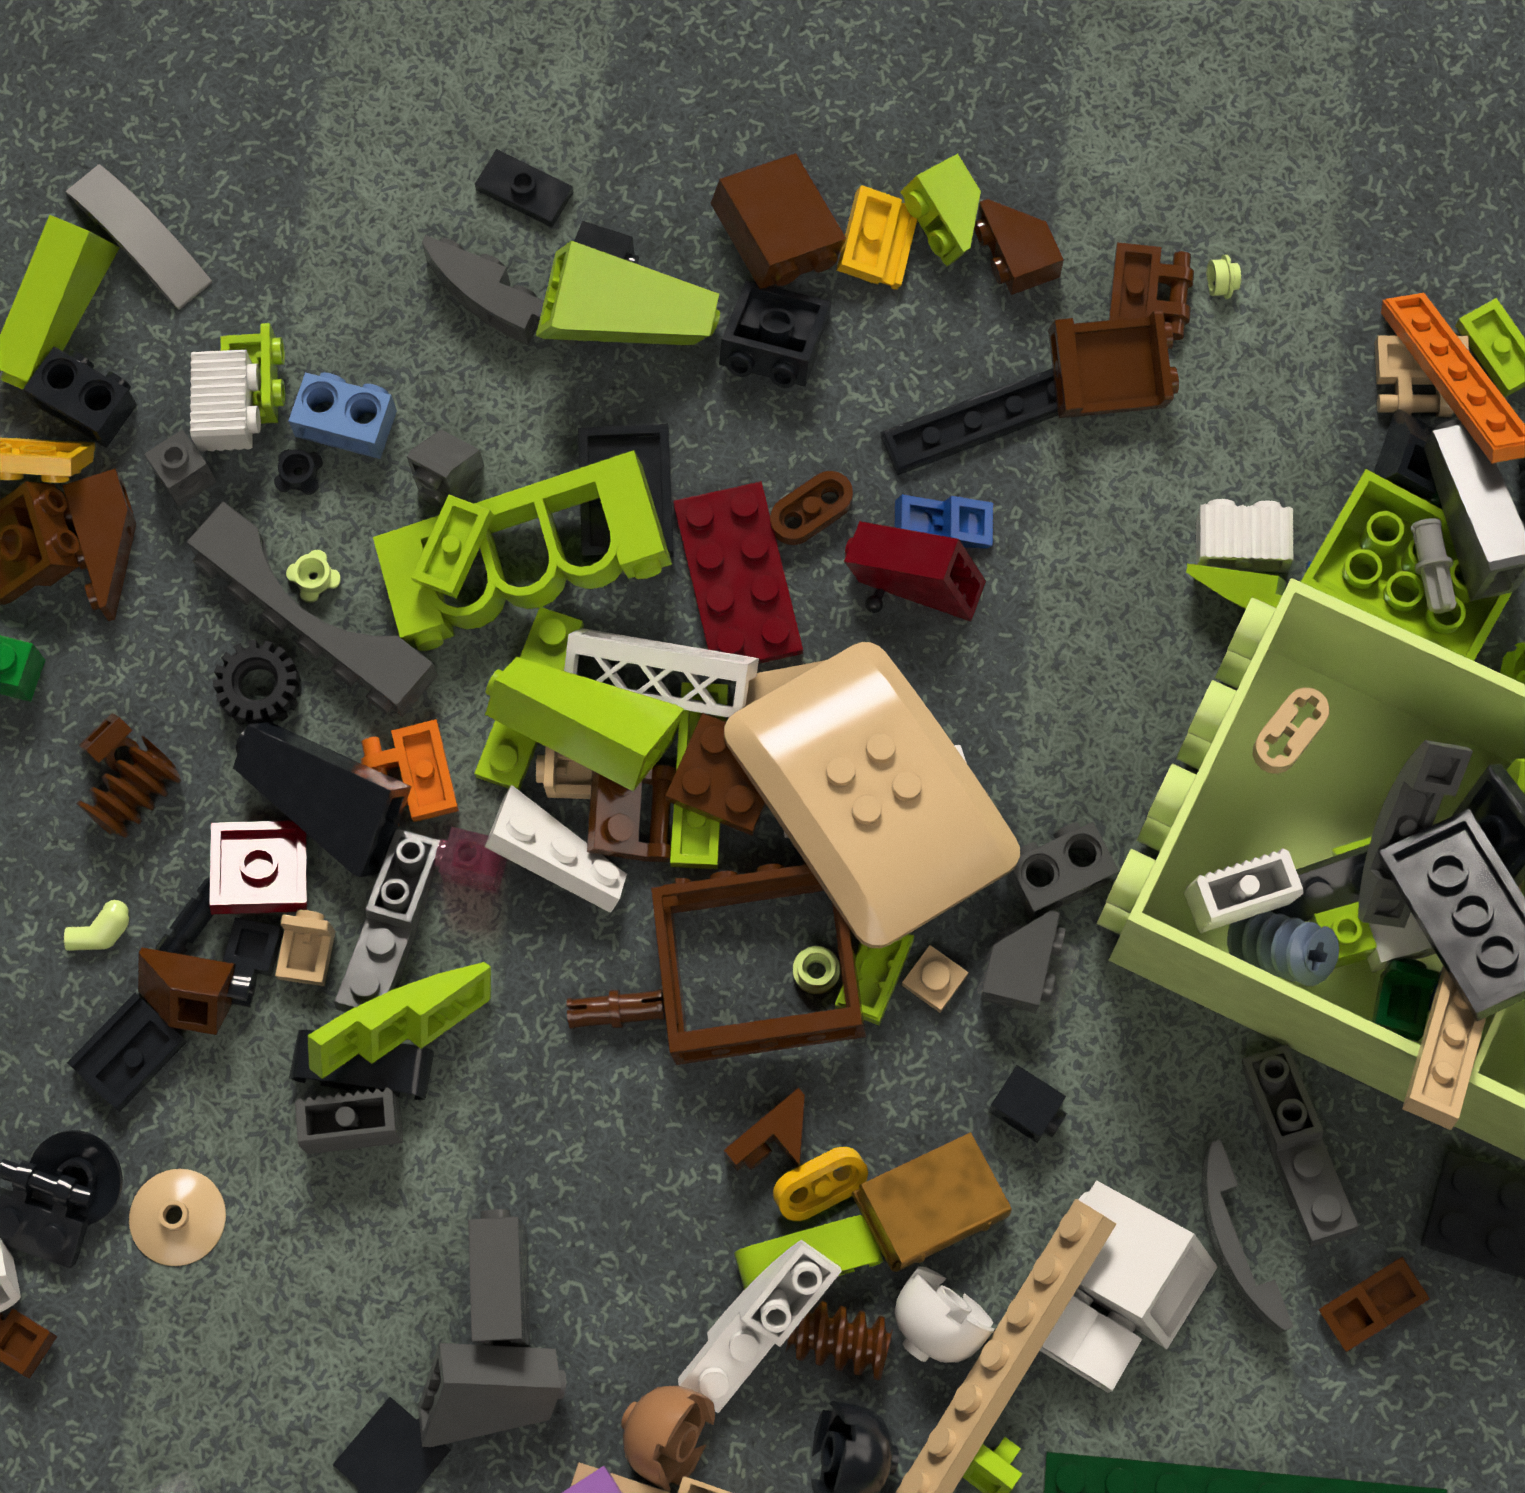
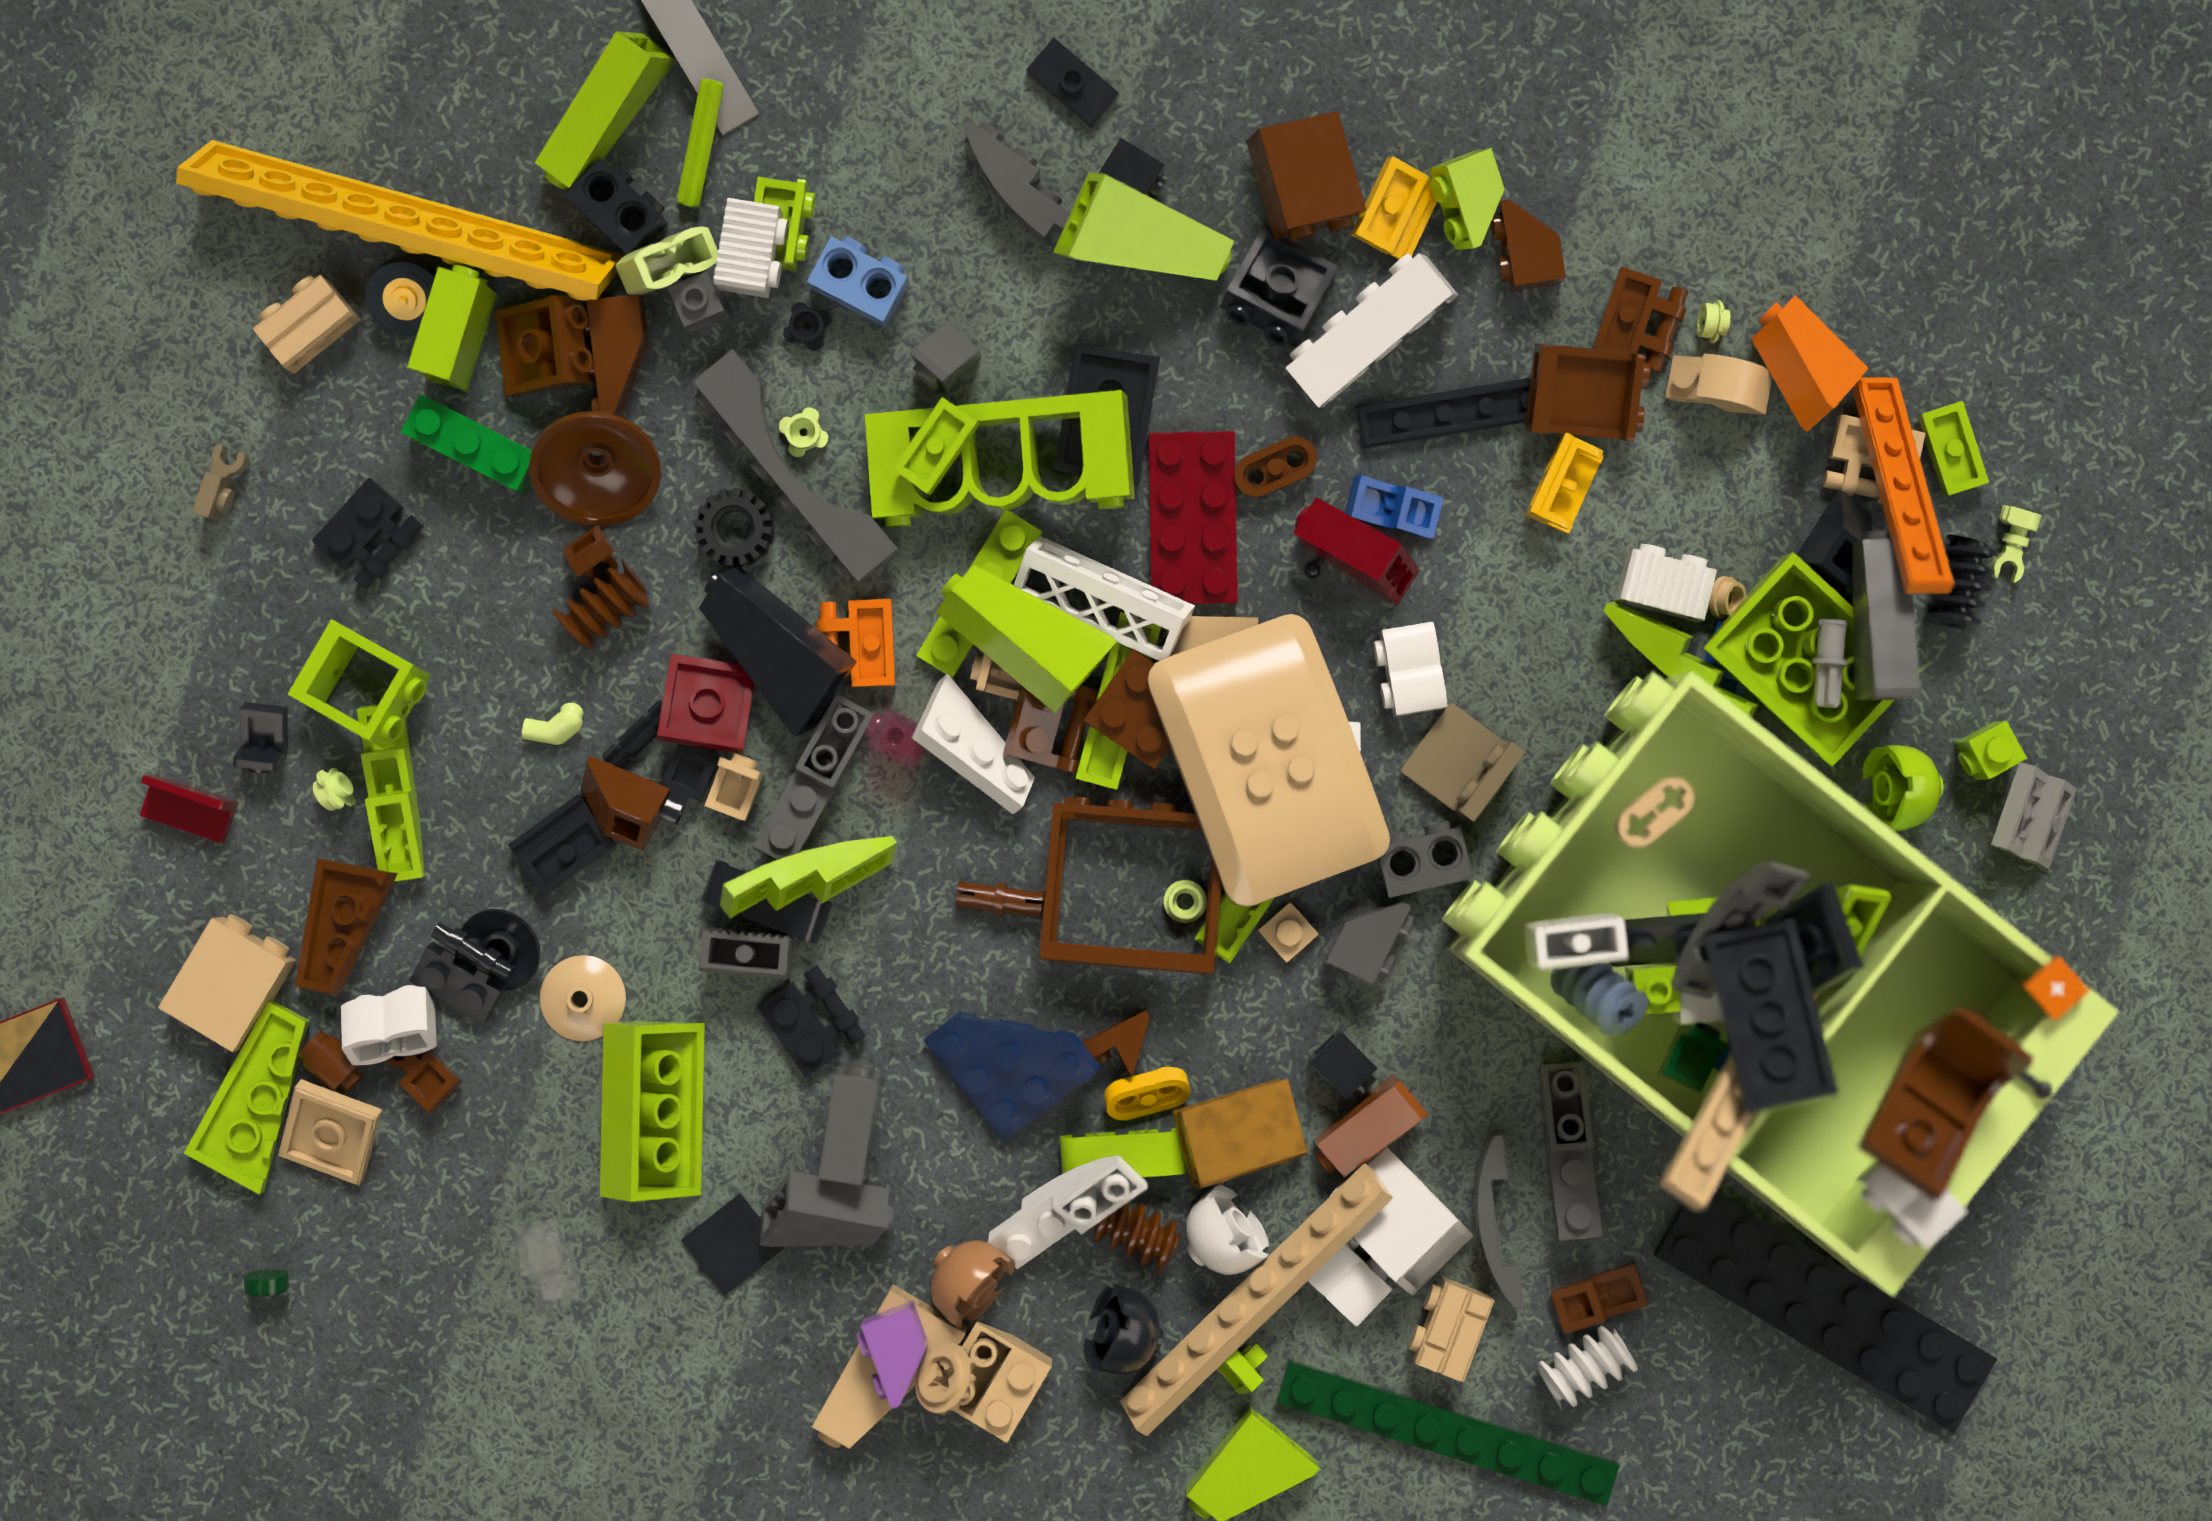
camera: 10 degrees right, 15 degrees up
(92, 675) = (589, 486): none -> reddish brown dish
(139, 428) = (667, 261): none -> yellowish green brick
(155, 315) = (700, 142): none -> lime axle
(274, 1320) = (652, 1110): none -> lime slope
(424, 1197) = (800, 1028): none -> black plate
(664, 1185) = (1011, 1067): none -> dark blue plate
(878, 348) = (1370, 328): none -> white wedge
(1002, 677) = (1411, 668): none -> white brick
(1072, 1163) = (1368, 1127): none -> dark orange slope
(1076, 761) = (1461, 762): none -> dark tan bracket
(1115, 461) = (1565, 483): none -> yellow hinge
(1218, 1372) = (1451, 1328): none -> tan brick
(1248, 325) = (1720, 381): none -> tan brick
(1308, 536) = (1725, 597): none -> tan plate
(1327, 289) = (1806, 360): none -> orange slope
(1378, 1381) = (1586, 1366): none -> white piece

